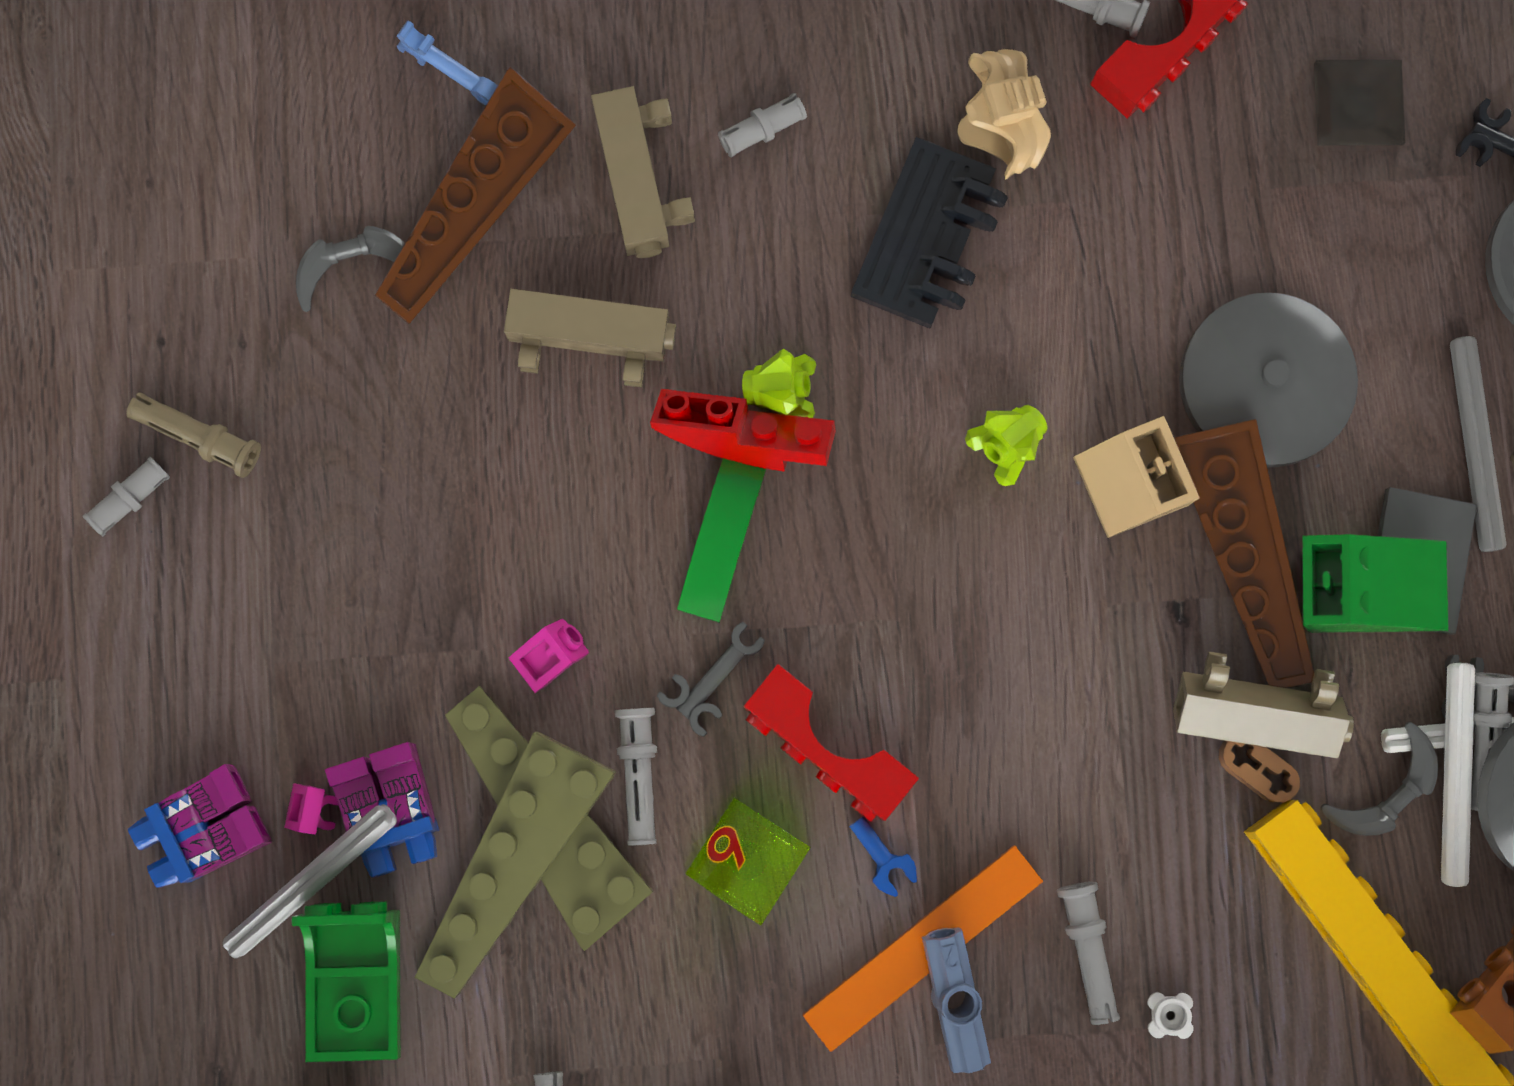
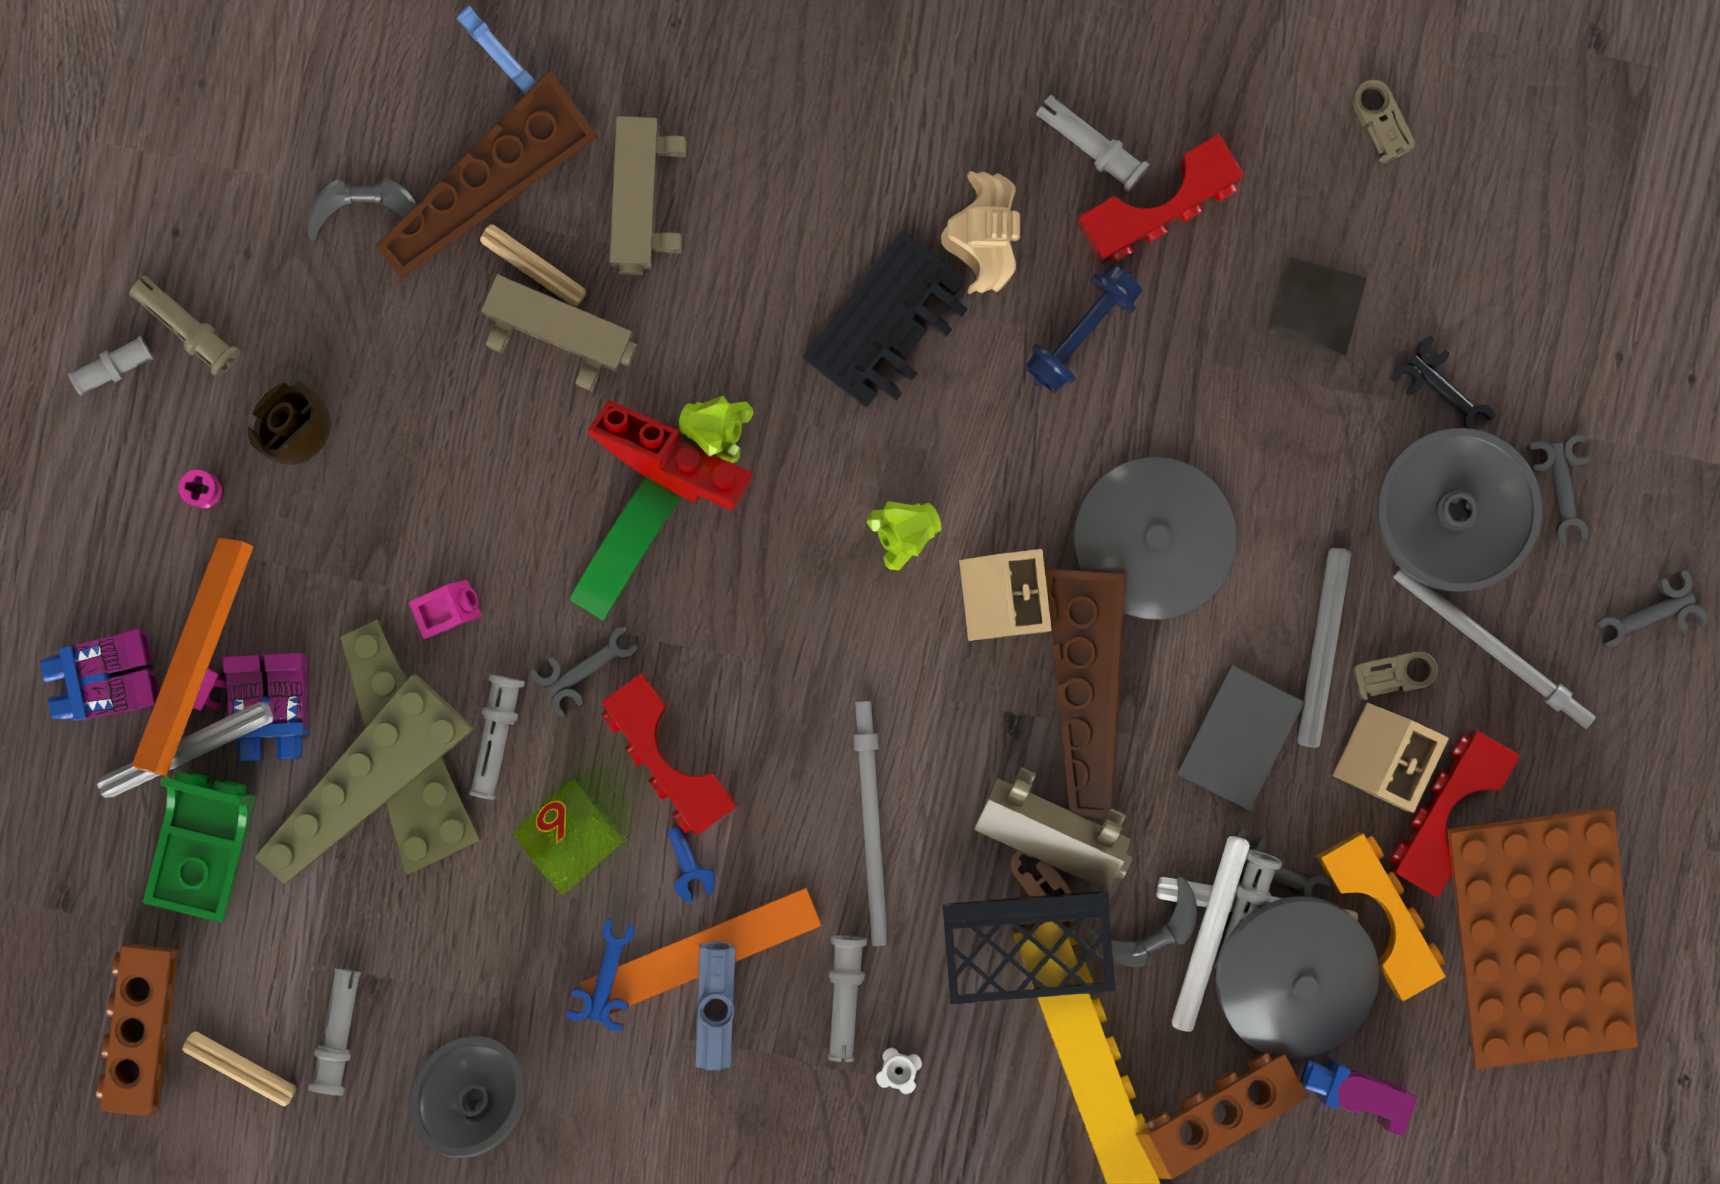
camera: 20 degrees right, 5 degrees up
(247, 588) = (197, 477): none -> dark pink bush
(291, 779) = (192, 656): none -> orange tile
(333, 503) = (290, 424): none -> dark brown cylinder
(543, 273) = (533, 265): none -> tan axle
(762, 125) = (766, 181): light grey pin -> none
(830, 1036) = (598, 1007): none -> blue bar
(1033, 674) = (866, 743): none -> light grey bar
(1154, 135) = (1118, 289): none -> dark blue piece
(1262, 802) = (1022, 911): none -> black fence
(1374, 584) = (1184, 748): green slope -> none

